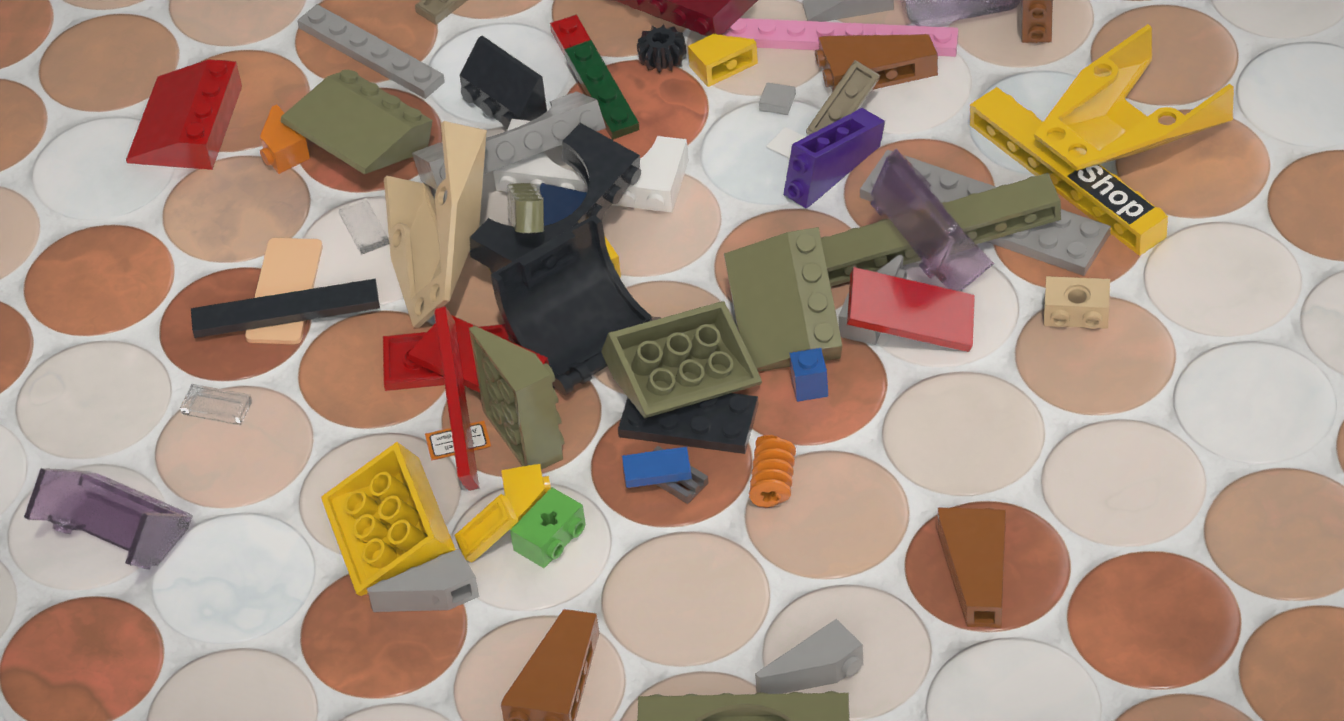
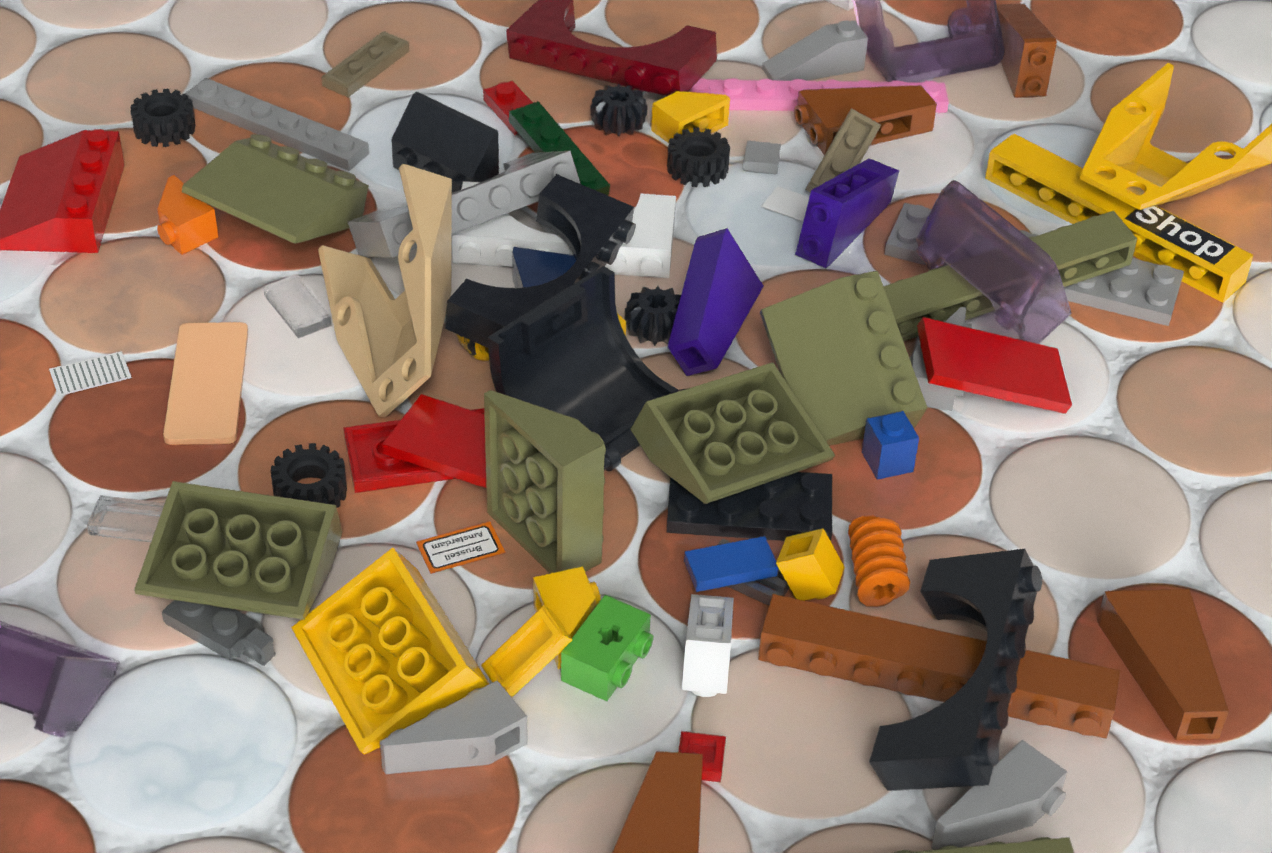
camera: 15 degrees left, 5 degrees down
(195, 278) = (90, 373): none -> white sticker
(267, 492) = (221, 630): none -> dark grey hinge
(278, 54) = (163, 117): none -> black tyre
(285, 308) = (211, 400): black tile -> none
(289, 436) = (240, 550): none -> olive slope
(354, 392) = (310, 464): none -> black tyre
(456, 399) = (458, 495): red tile -> none
(525, 207) = (509, 267): olive beam -> none
(608, 612) = (712, 749): none -> red tile
(625, 529) = (708, 645): none -> white slope
(649, 249) = (652, 314): none -> black gear
(694, 242) = (713, 302): none -> dark purple slope
(716, 472) = (810, 565): none -> yellow brick
(720, 109) = (698, 157): none -> black tyre
(787, 613) = (962, 736): none -> black arch
(796, 558) = (932, 663): none -> dark orange brick
(1077, 302) = (1178, 351): tan brick -> none

